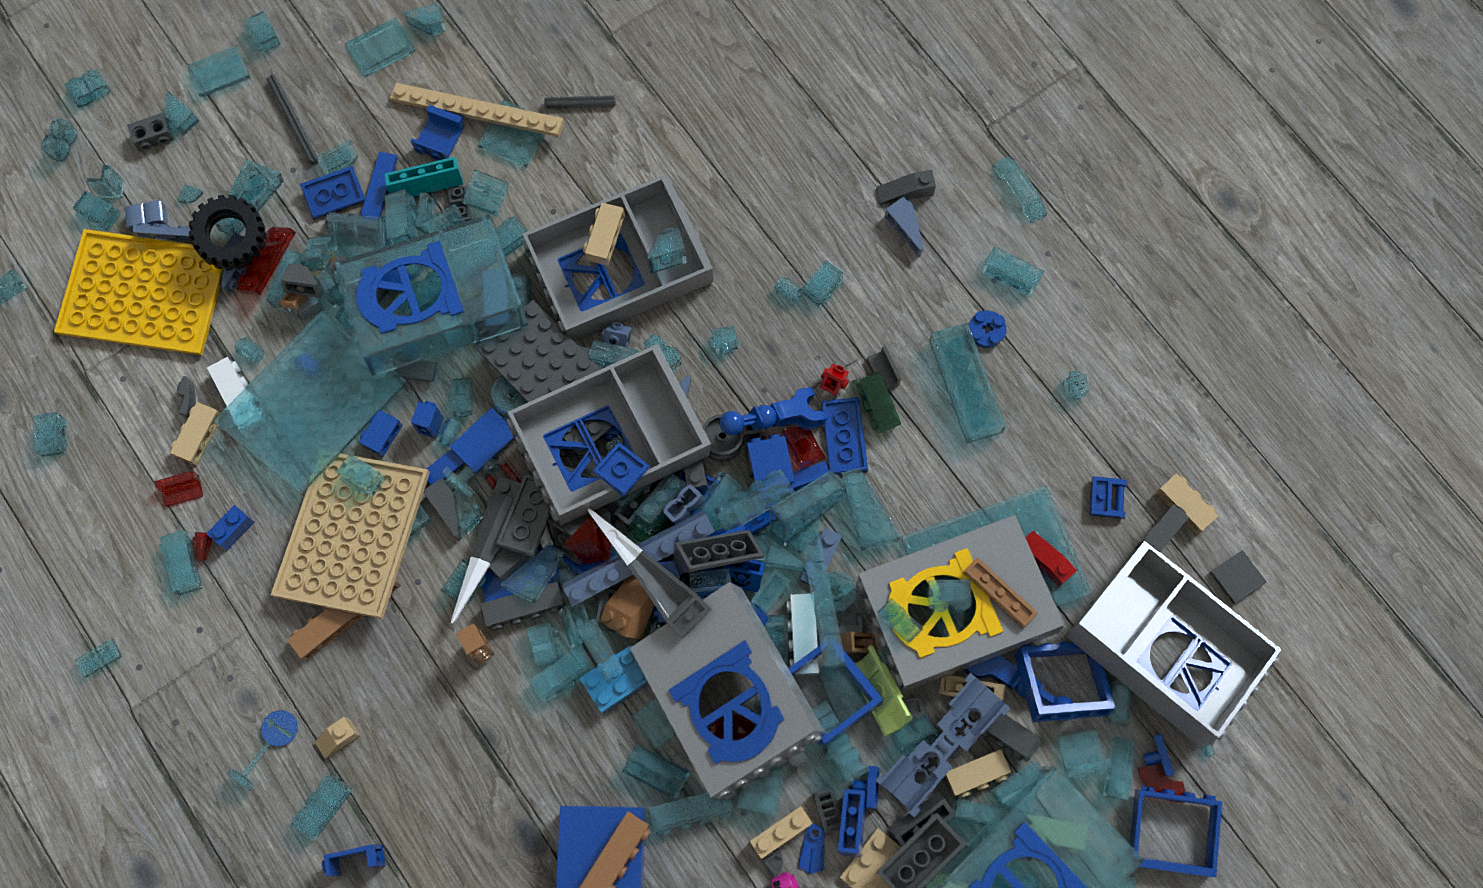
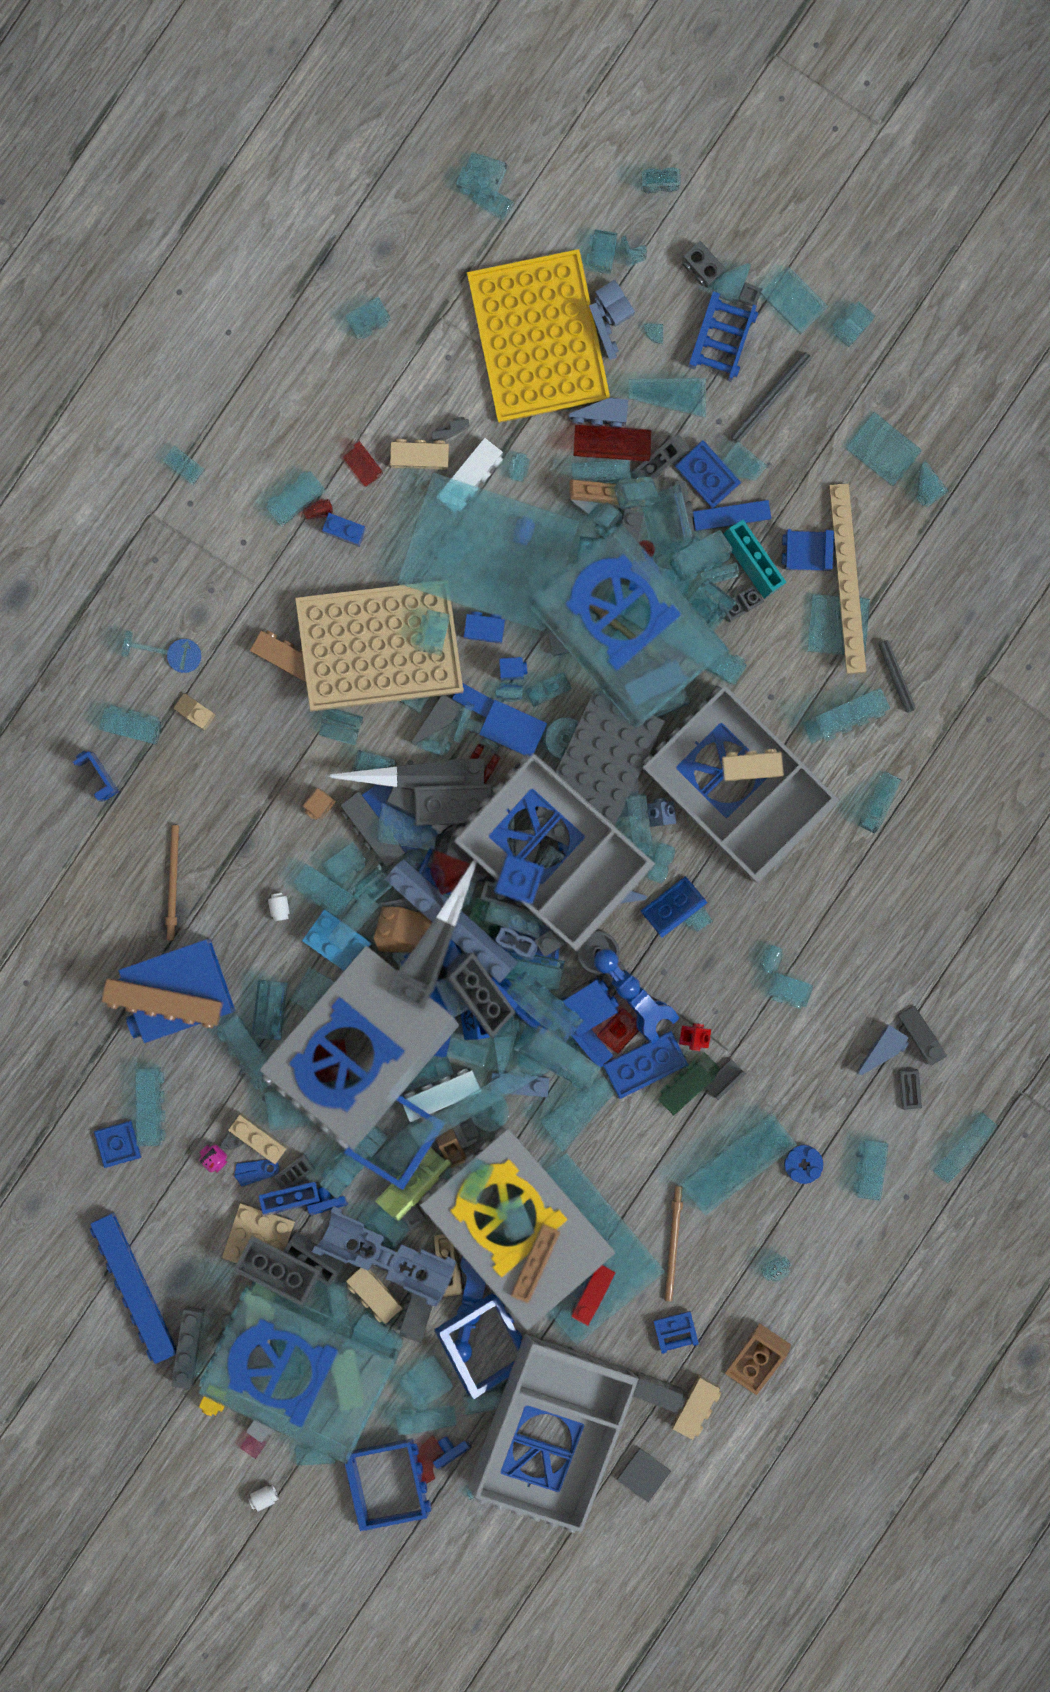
camera: 65 degrees right, 15 degrees up
(87, 88) = (727, 177): clear light blue brick -> none
(197, 105) = (749, 294): none -> dark grey tile
(215, 155) = (710, 323): none -> blue fence
(227, 208) = (593, 400): black tyre -> none
(300, 222) = (662, 458): none -> dark grey slope
(300, 281) = (598, 492): dark grey slope -> none
(413, 600) = (340, 726): none -> clear light blue panel
(485, 193) = (763, 624): clear light blue slope -> none
(529, 840) = (171, 920): none -> medium nougat bar
(560, 725) = (278, 907): none -> white brick
(596, 152) = (847, 715): none -> clear light blue wedge
(666, 251) = (754, 836): clear light blue slope -> none
(685, 152) = (879, 802): none -> clear light blue slope
(707, 356) = (673, 906): none -> blue tile
(935, 216) = (902, 1088): none -> dark grey tile
(988, 454) = (677, 1206): none -> medium nougat bar
(1158, 431) = (758, 1359): none -> medium nougat slope

